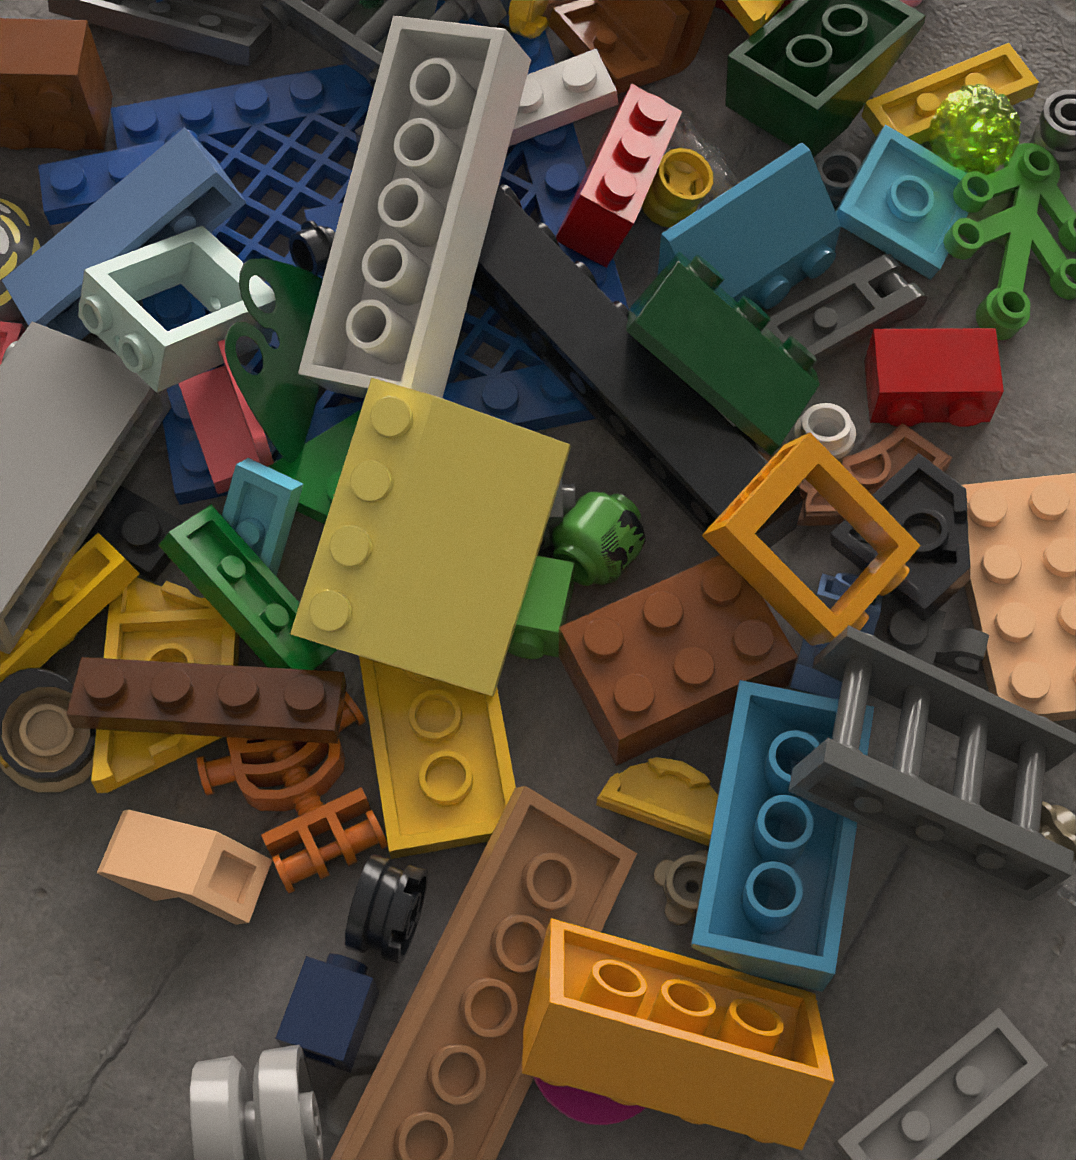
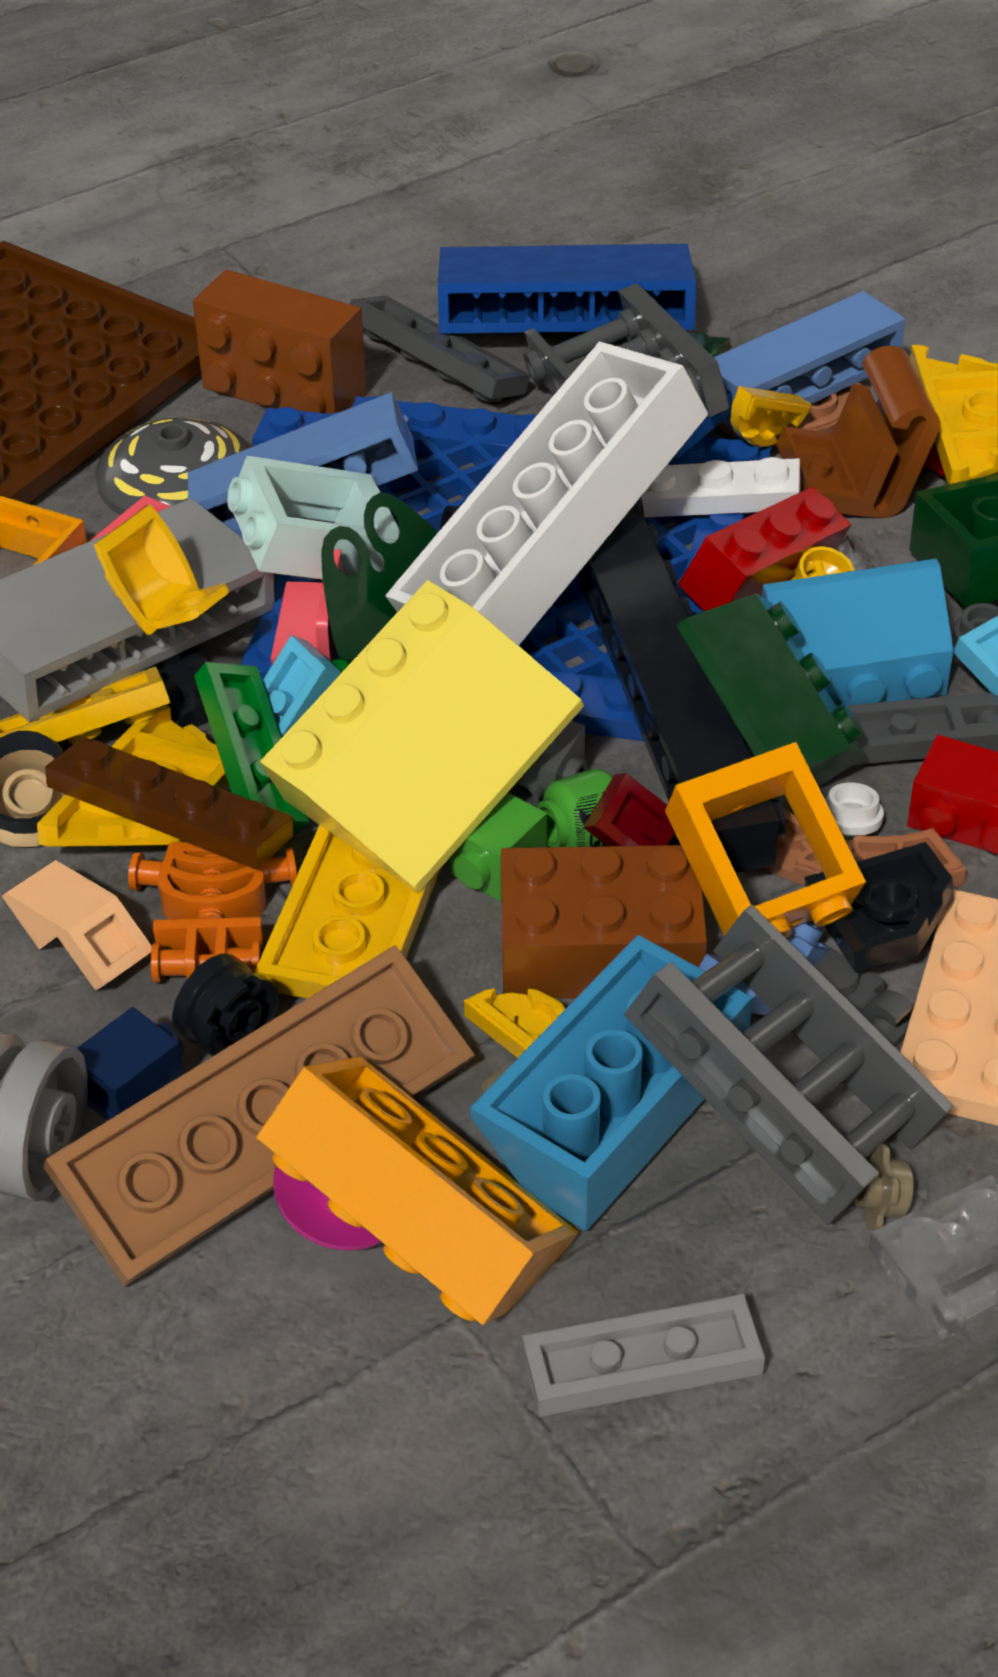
camera: 25 degrees right, 20 degrees down
(69, 457) = (152, 573): none -> yellow piece
(658, 541) = (630, 815): none -> dark red bracket

